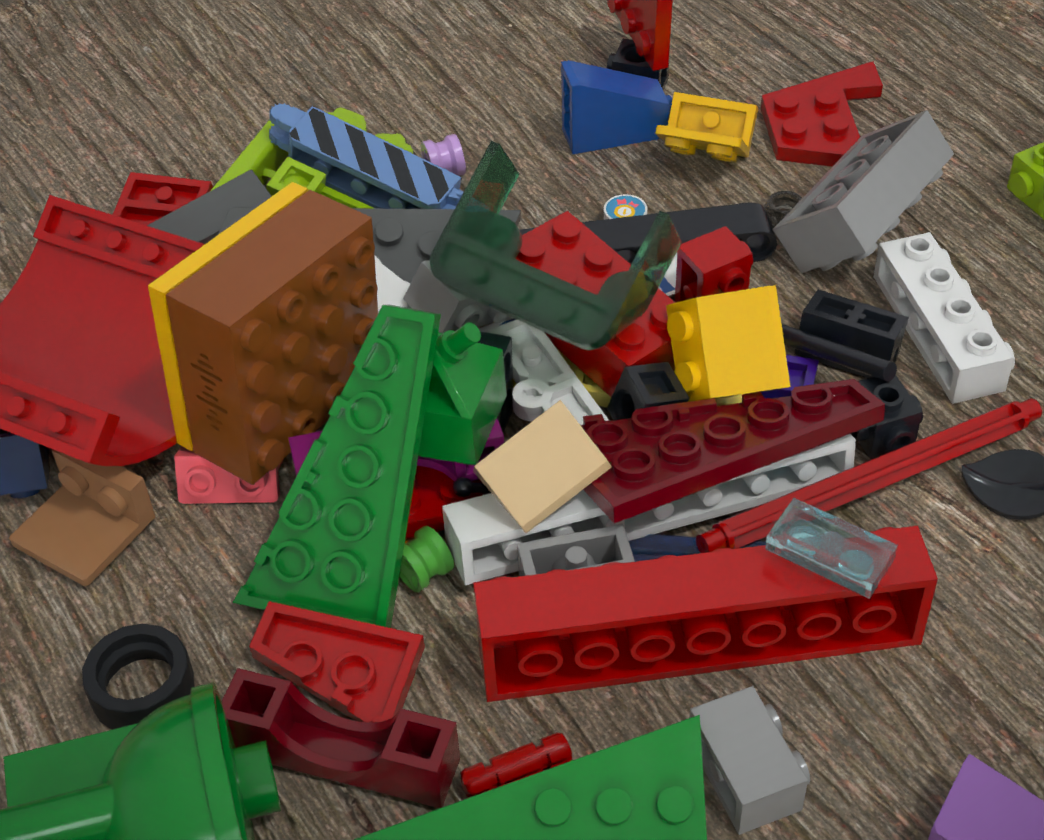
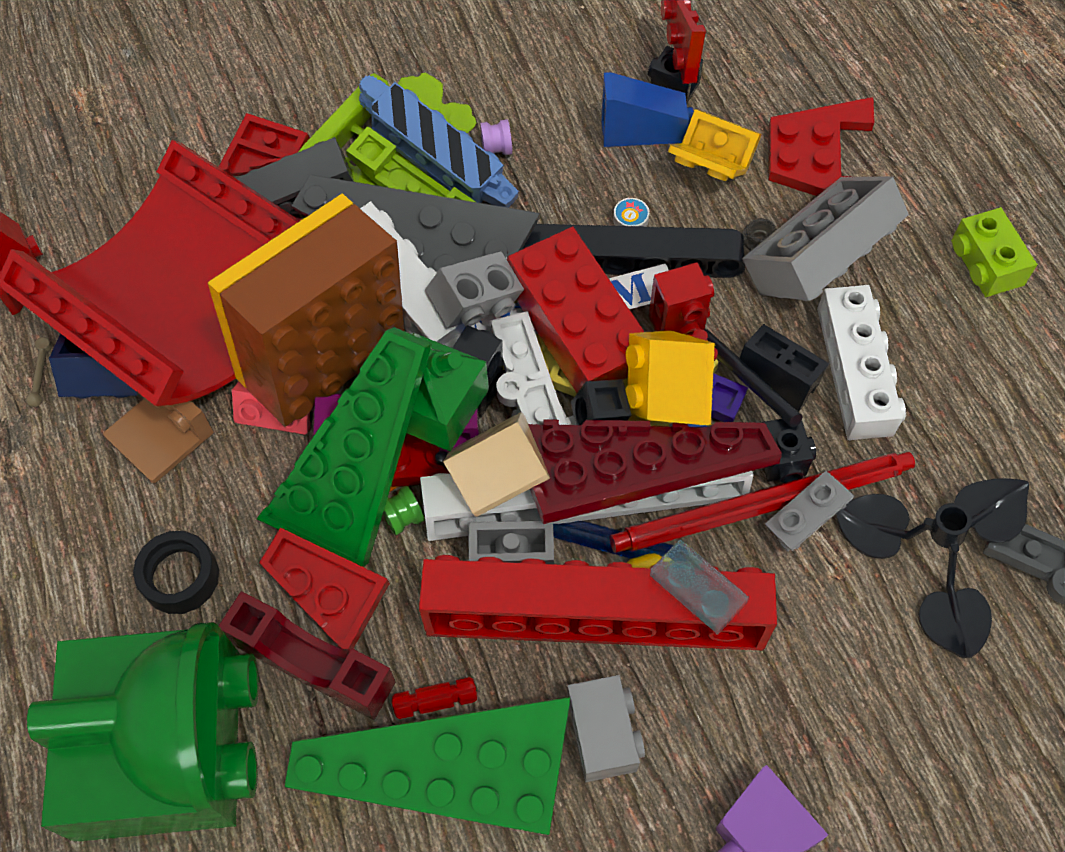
camera: 10 degrees right, 15 degrees up
(480, 262) = (487, 283): clear green windscreen -> none
(932, 474) = (809, 511): none -> light grey hinge

